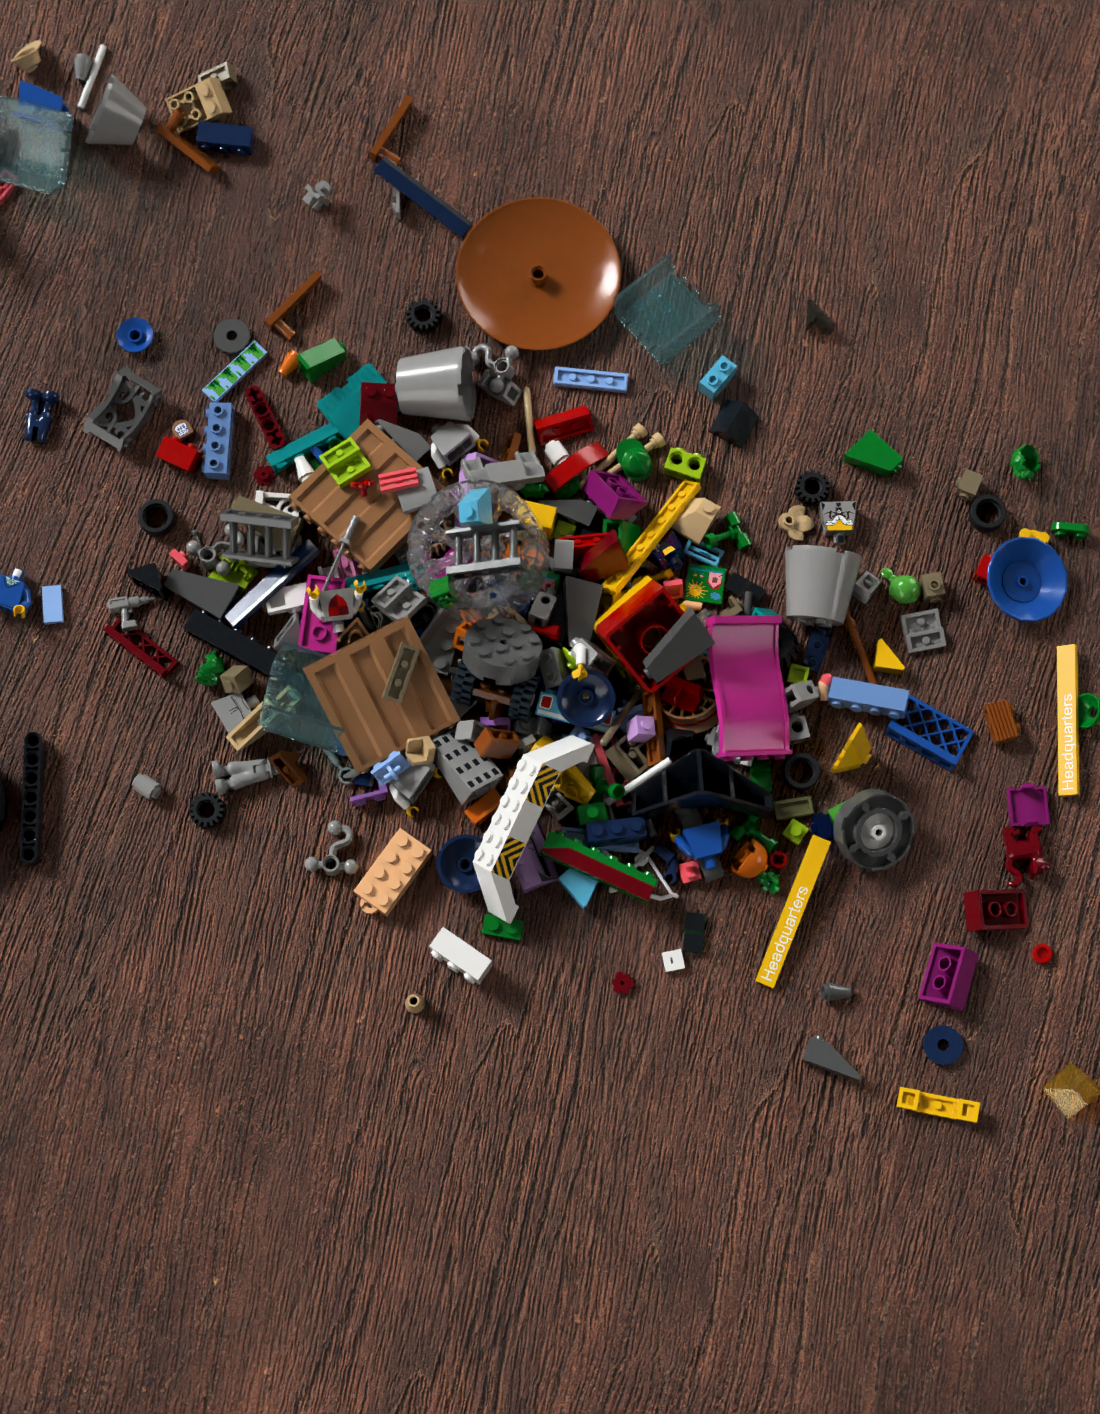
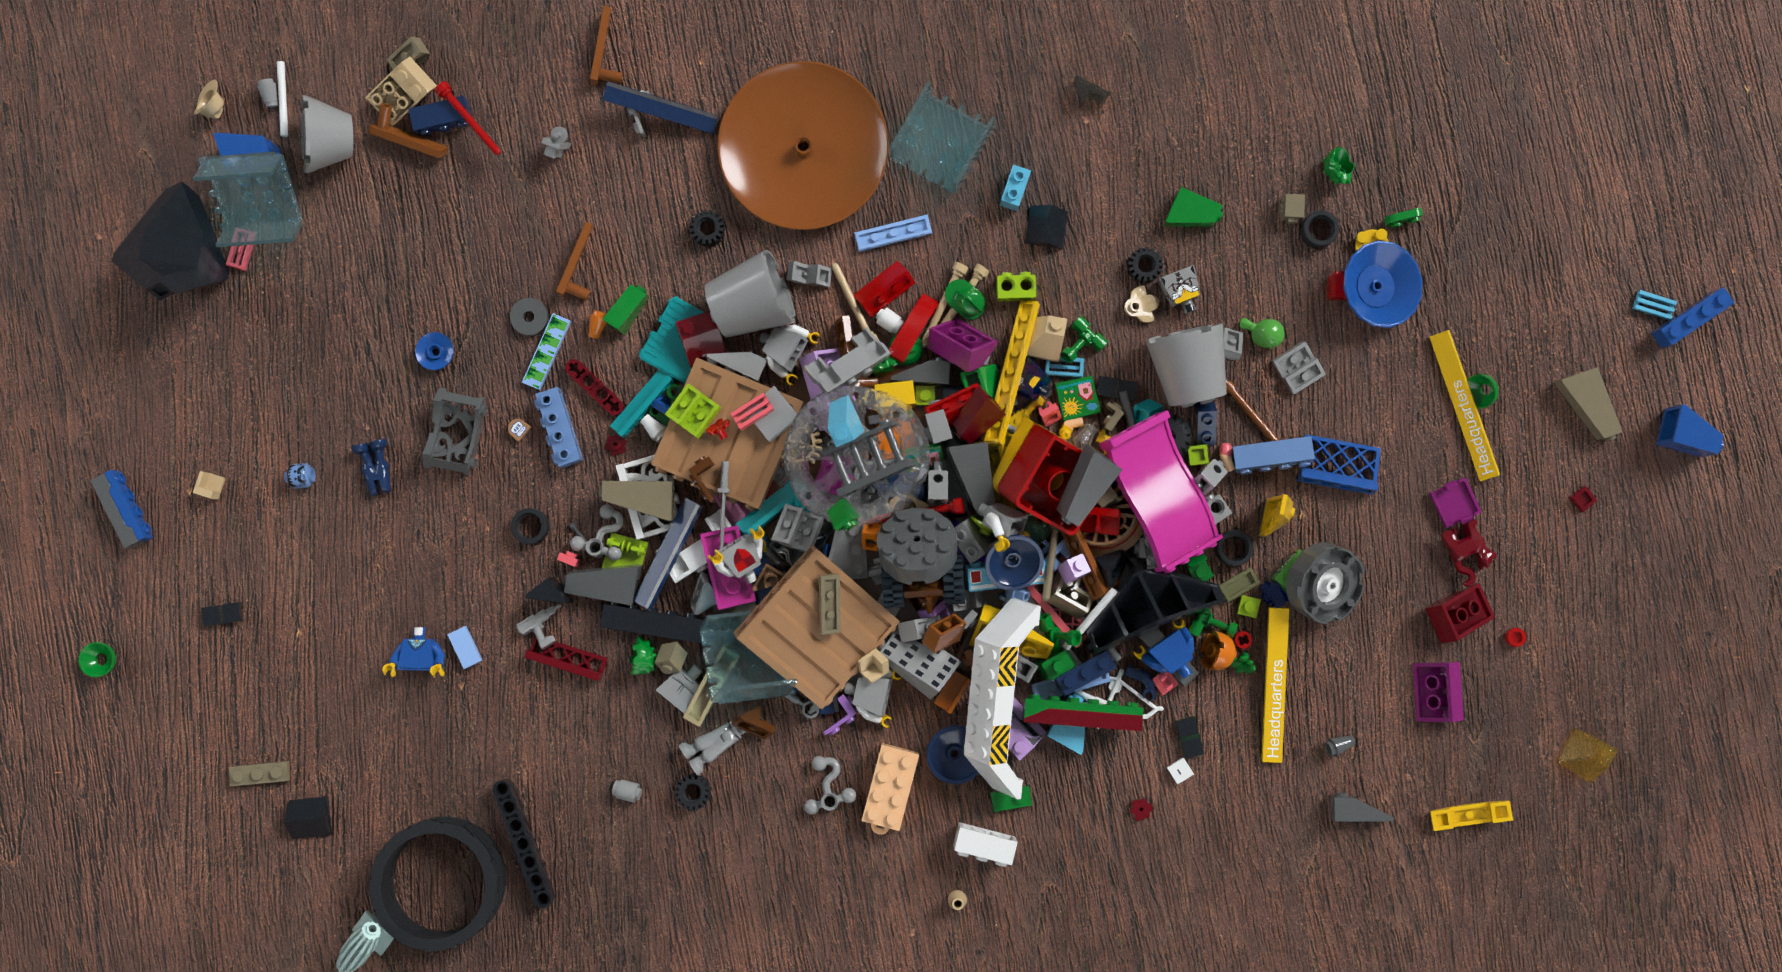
camera: 15 degrees left, 10 degrees up
(178, 454) = (526, 456): red brick -> none
(237, 117) = (444, 90): none -> red piece
(268, 522) = (643, 499): dark grey fence -> none
(331, 513) = (701, 466): none -> reddish brown bracket
(390, 768) = (852, 695): light blue hips -> none
(511, 353) = (808, 237): light grey piece -> none
(886, 660) = (1273, 409): yellow slope -> none
(932, 587) = (1293, 322): dark tan brick -> none
(953, 1040) = (1465, 760): dark blue tile -> none
(1001, 721) = (1403, 430): dark orange brick -> none

